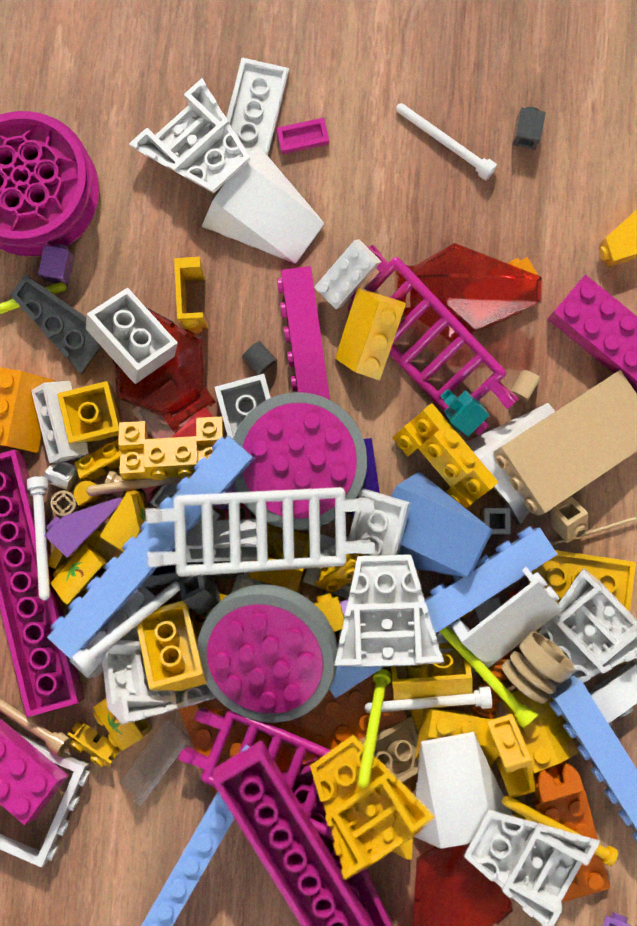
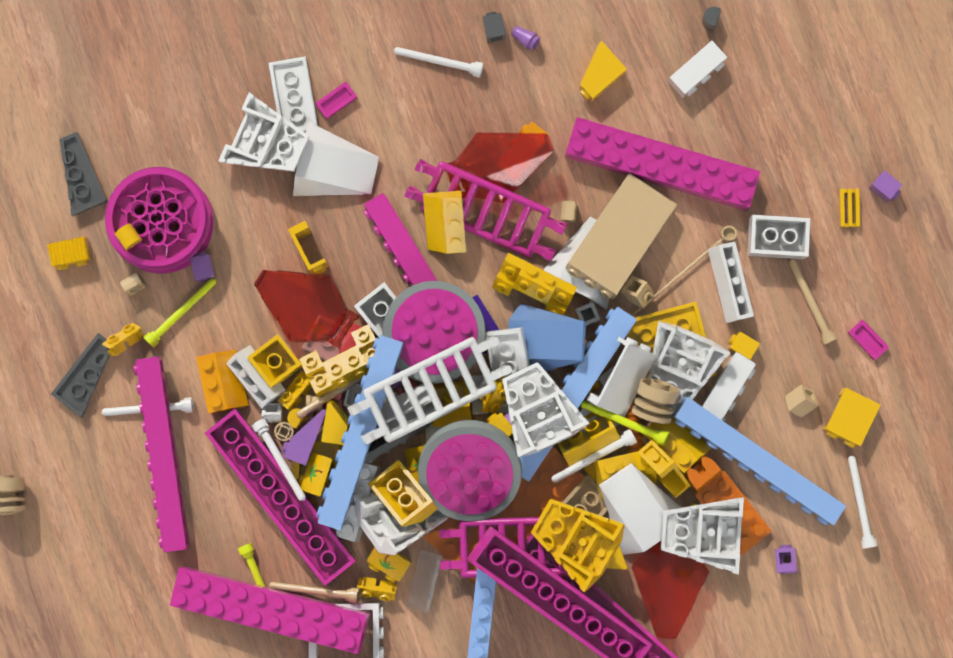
camera: 20 degrees left, 0 degrees up
(58, 322) = (229, 308): dark grey wing -> none
(86, 659) = (350, 525): white piece -> none
(131, 335) = (280, 295): white brick -> none
(199, 592) = (405, 450): dark grey brick -> none
(259, 358) = (374, 272): dark grey brick -> none
(347, 274) = (411, 188): white piece -> none
(381, 678) = (555, 456): neon yellow bar -> none
(464, 412) = (533, 249): teal brick -> none
(562, 157) = (527, 38): none -> medium lavender cone
(608, 854) = (758, 507): yellow bar -> none

